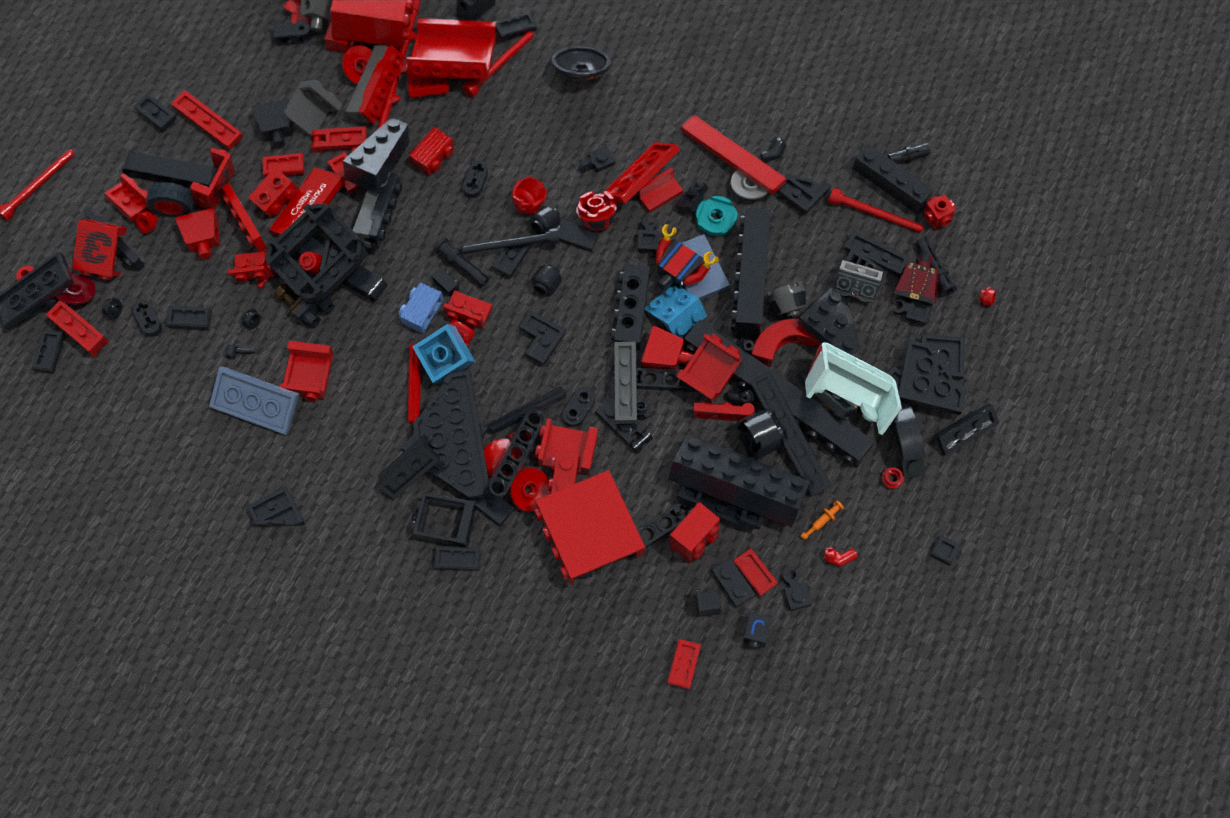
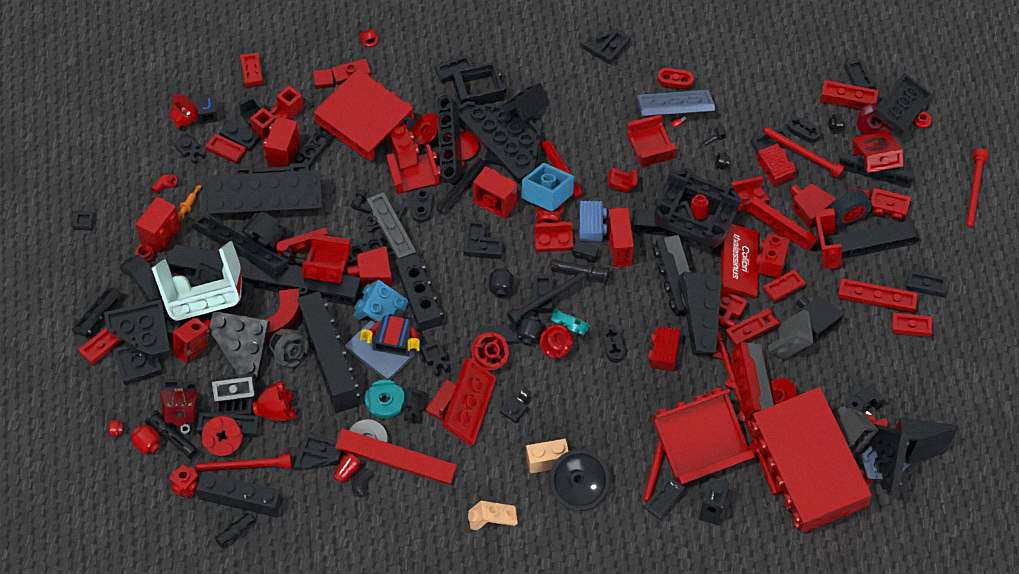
camera: 150 degrees right, 10 degrees down
(150, 259) = (835, 169): none -> red piece
(197, 81) = (912, 324): none -> red plate
(203, 287) = (776, 165): none -> red brick
(234, 435) = (675, 78): none -> red plate
(361, 338) = (621, 180): none -> red bracket
(405, 268) = (620, 237): none -> red window
(499, 372) = (495, 192): none -> red brick
(504, 206) = (572, 323): none -> teal plate
(530, 648) = (368, 35): none -> red tile
(572, 611) = (343, 72): none -> red plate
(596, 98) = (543, 455): none -> light nougat brick
(607, 615) = (323, 78): none -> red tile
(671, 587) = (287, 106): none -> red arch
(676, 67) = (491, 512): none -> light nougat bracket
(784, 165) = (346, 468): none -> red cone
(784, 637) = (183, 111): none -> red piece
(824, 247) = (275, 403): none -> red piece
(869, 490) = (158, 225): none -> red brick
(881, 348) = (190, 339): none -> red torso
(887, 238) = (217, 425): none -> red plate
(962, 269) = (145, 439): none -> red head
(979, 388) = (99, 346): none -> red plate

